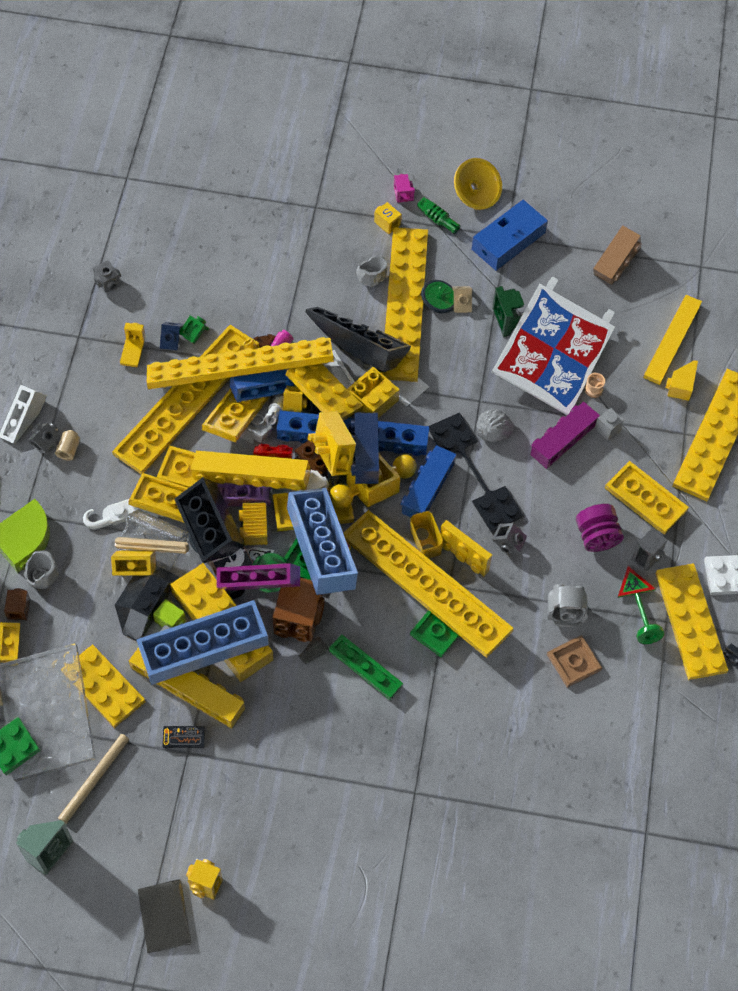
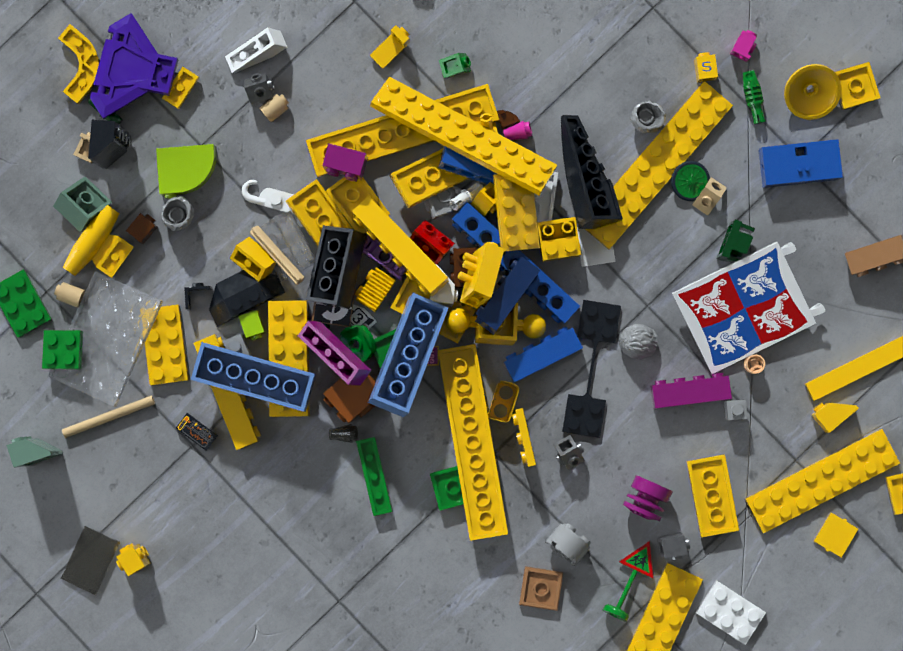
camera: 45 degrees right, 25 degrees up
(99, 620) = (195, 287): none -> black bracket
(158, 438) = (344, 162): none -> magenta brick
(170, 335) = (431, 56): dark blue bracket -> none
(508, 165) = (857, 86): none -> yellow plate

